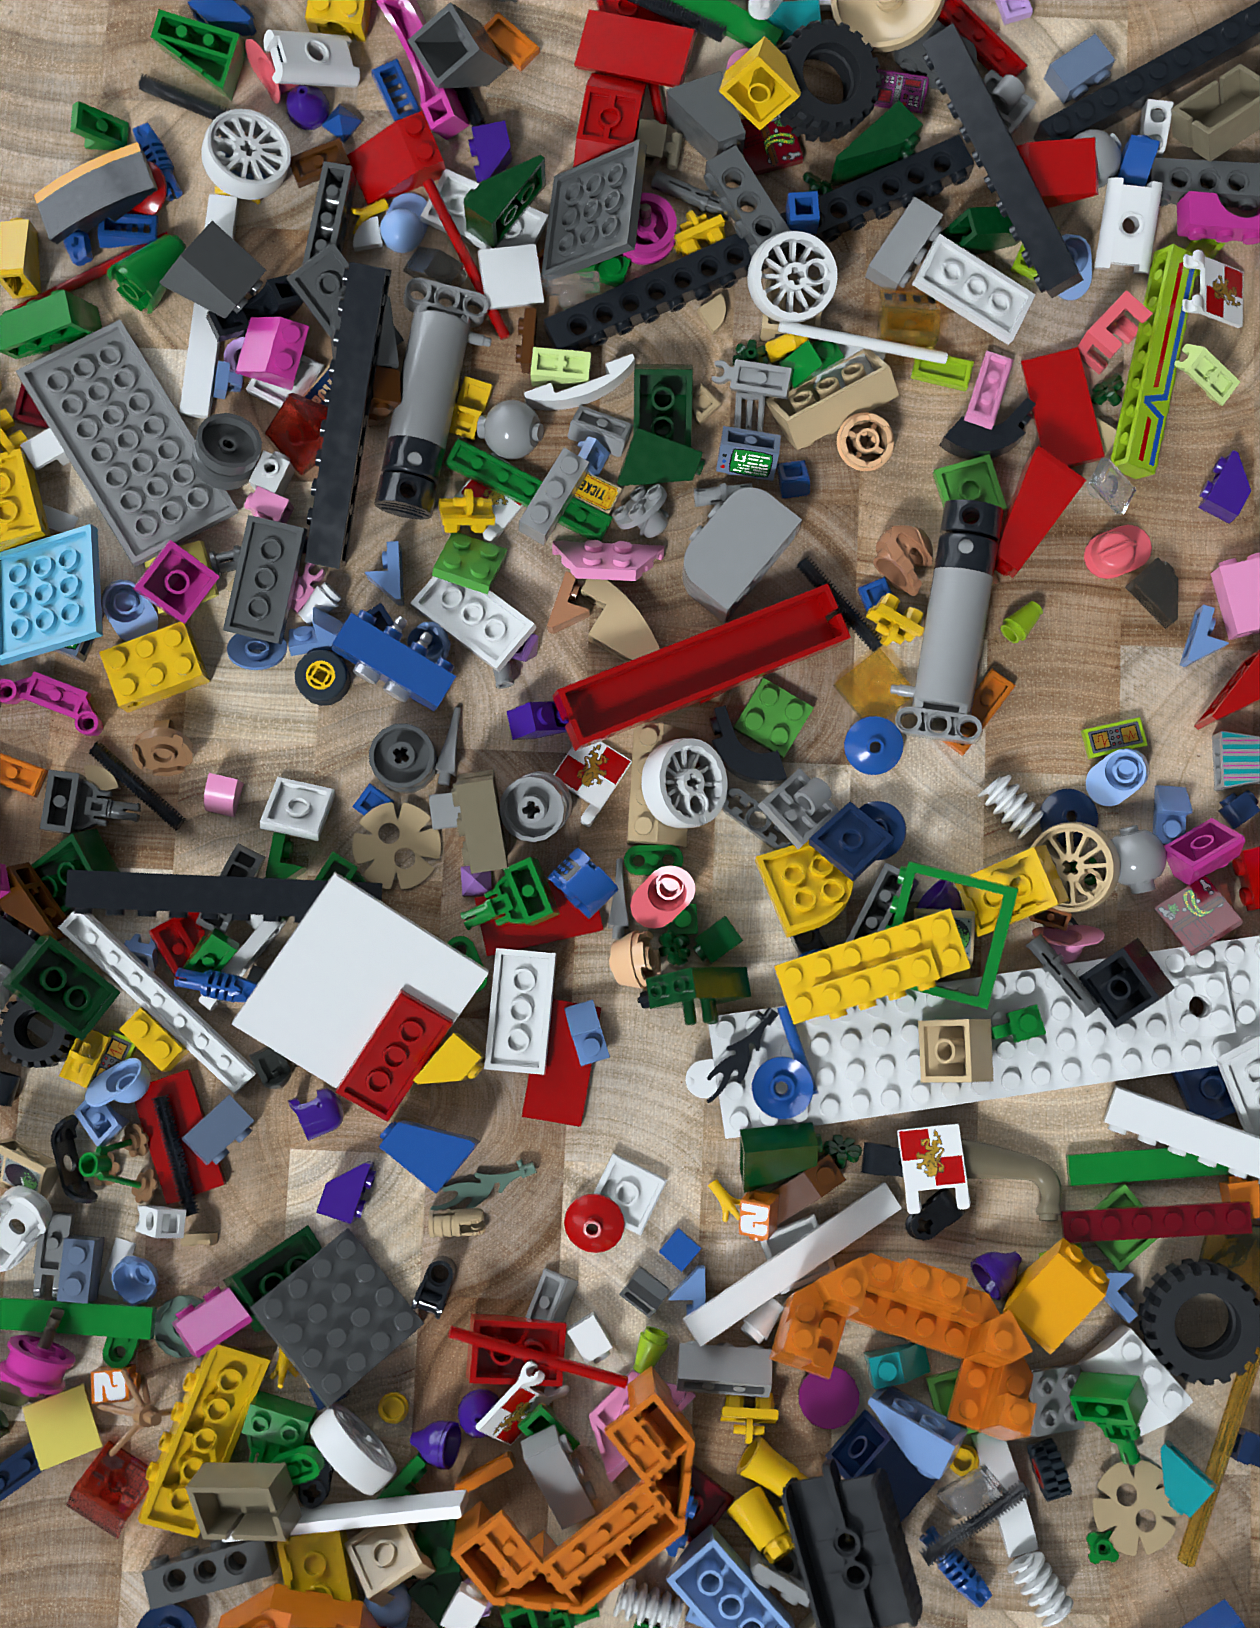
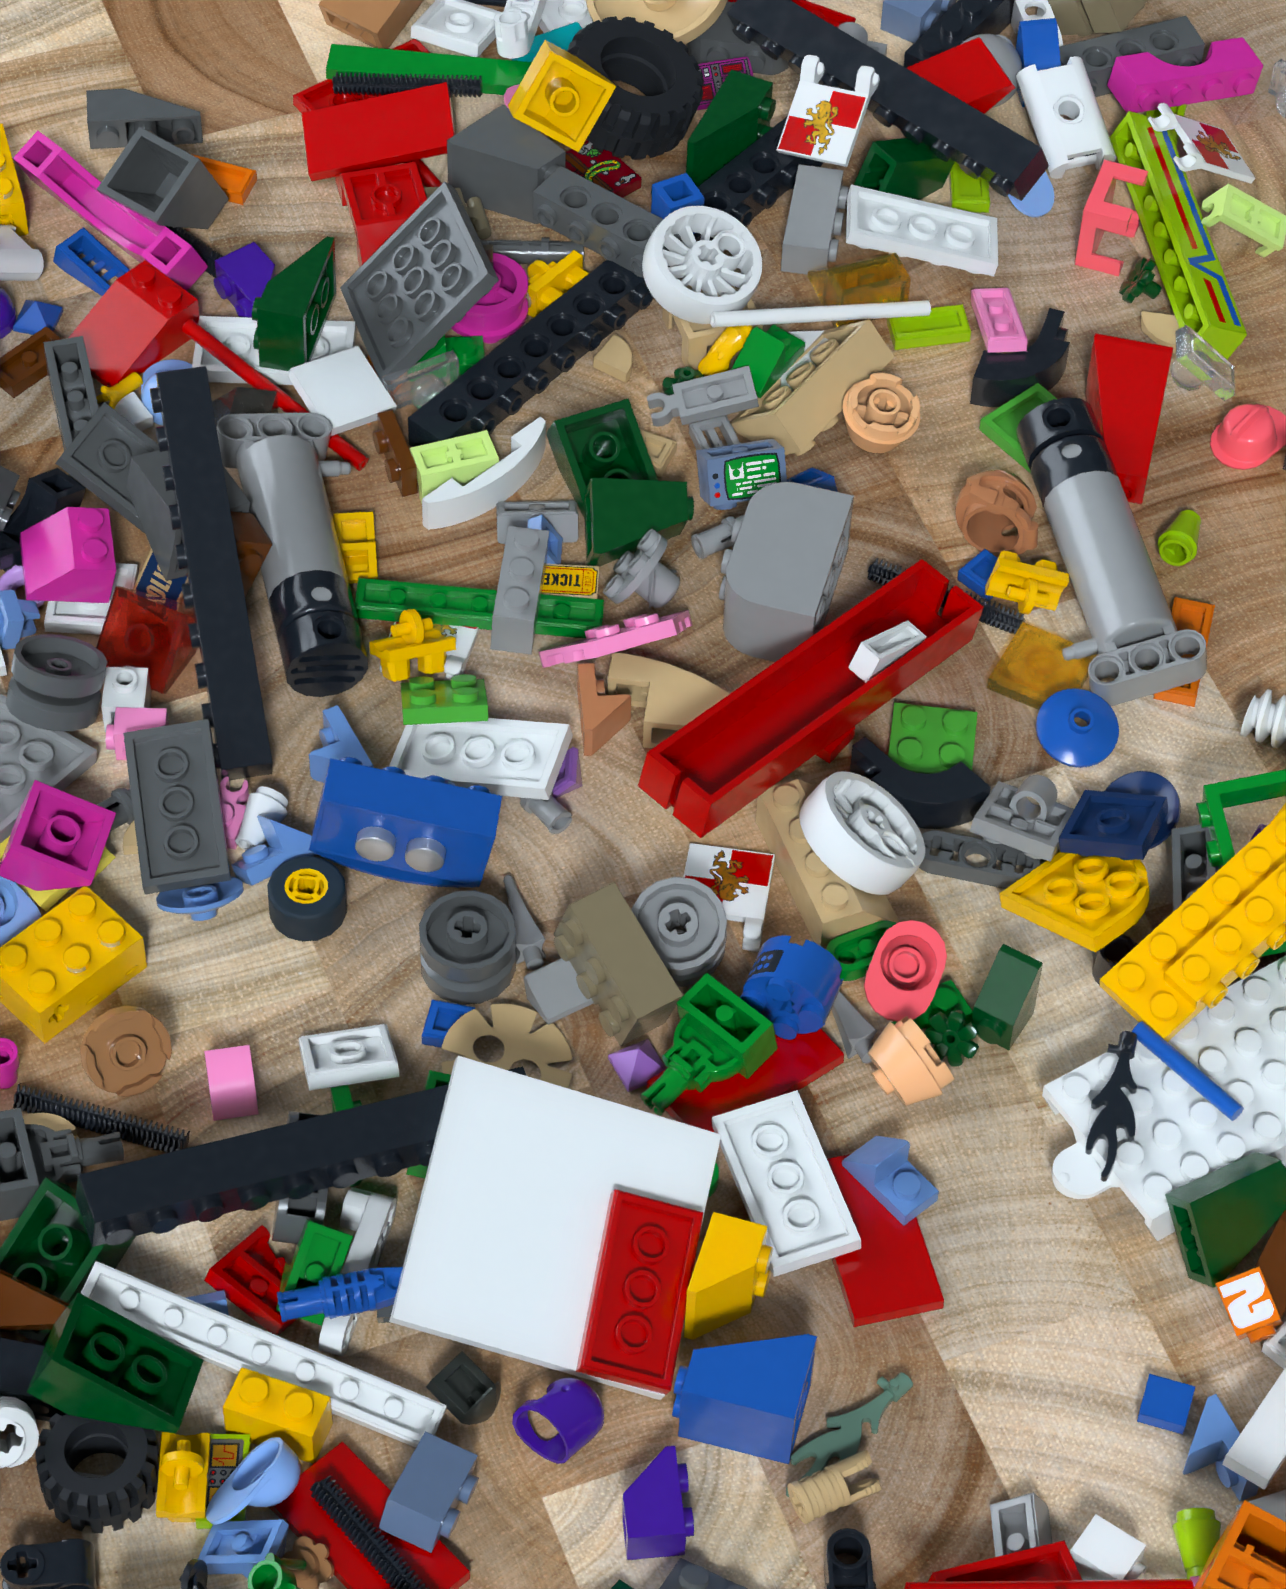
camera: 25 degrees left, 30 degrees down
(510, 429) = (423, 546): light grey brick -> none
(535, 721) = (630, 842): dark purple slope -> none
(598, 1211) = (1026, 1437): red dish -> none
(632, 1189) = (1053, 1364): white tile -> none
(644, 1292) = (1149, 1470): dark grey piece -> none
(696, 988) = (1009, 1047): dark green piece -> none
(726, 1200) = (1192, 1317): yellow bar -> none
(766, 652) = (884, 649): none -> white piece
(798, 1084) = (1194, 1098): blue dish -> none
(946, 169) = (826, 118): none -> flag
(1063, 407) = (1091, 304): red tile -> none

